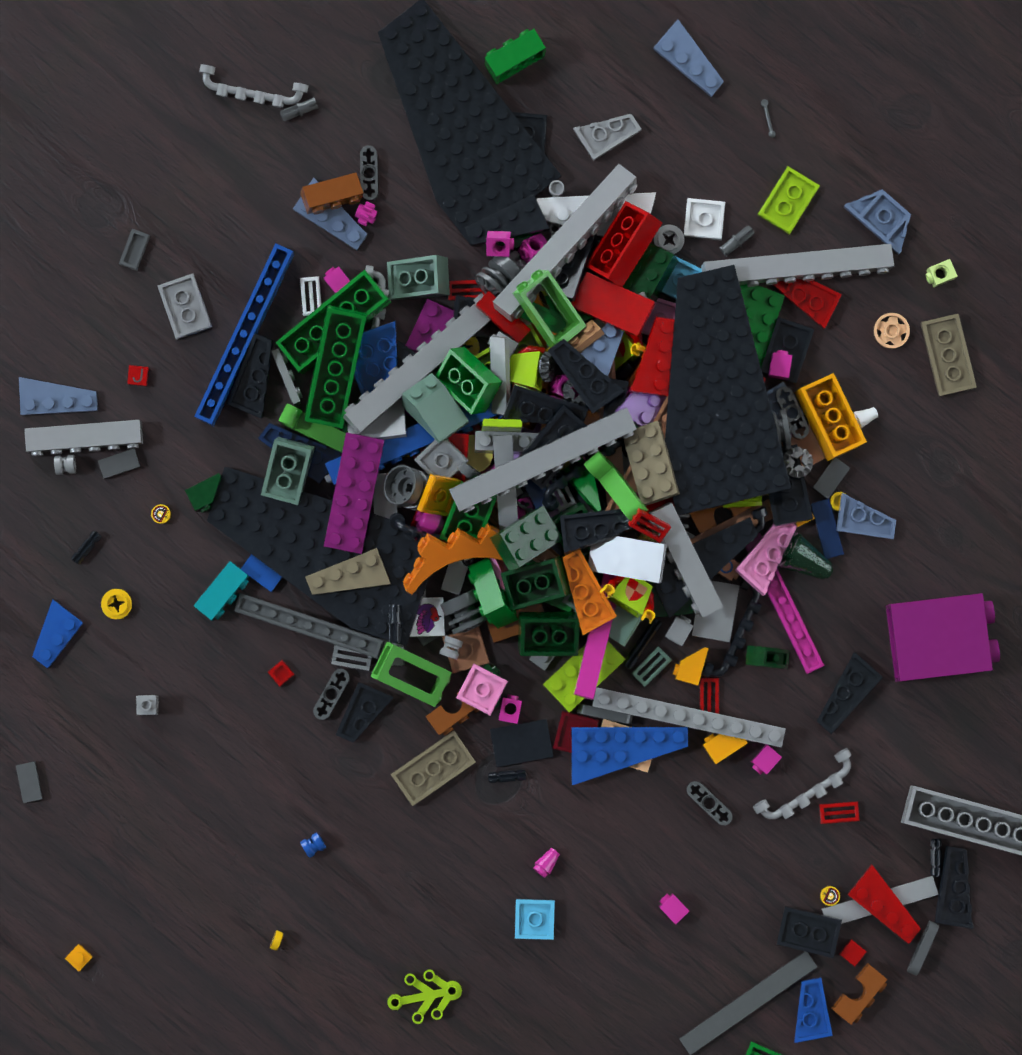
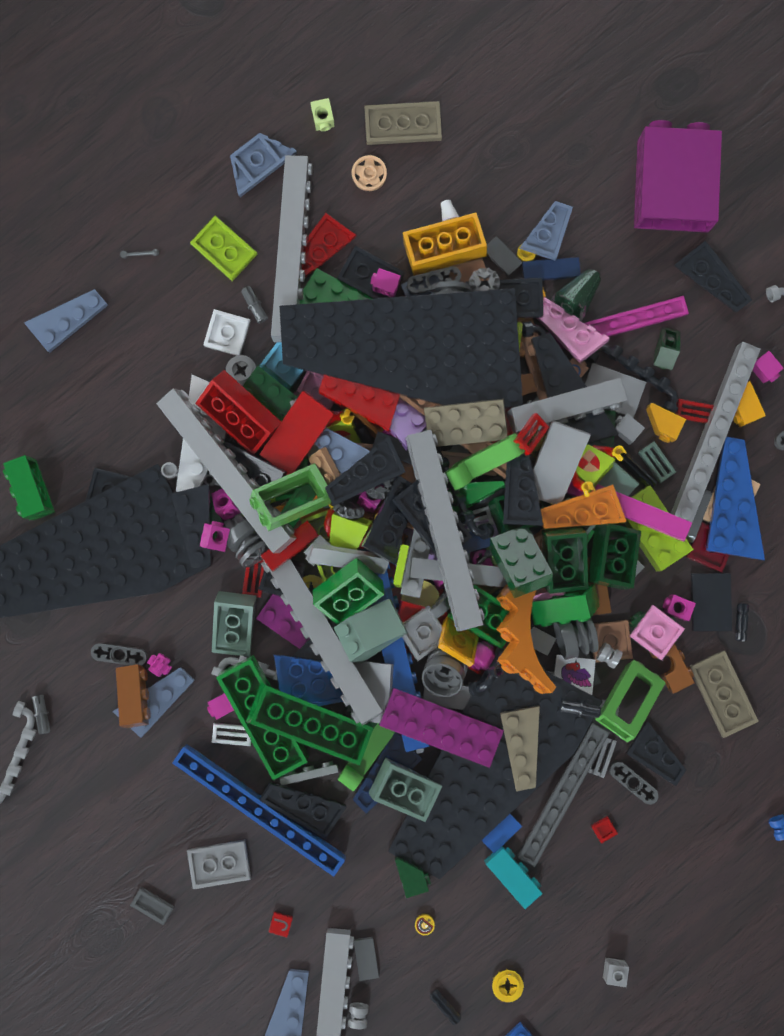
camera: 80 degrees left, 0 degrees up
(606, 135) = (125, 411): light grey wing -> none

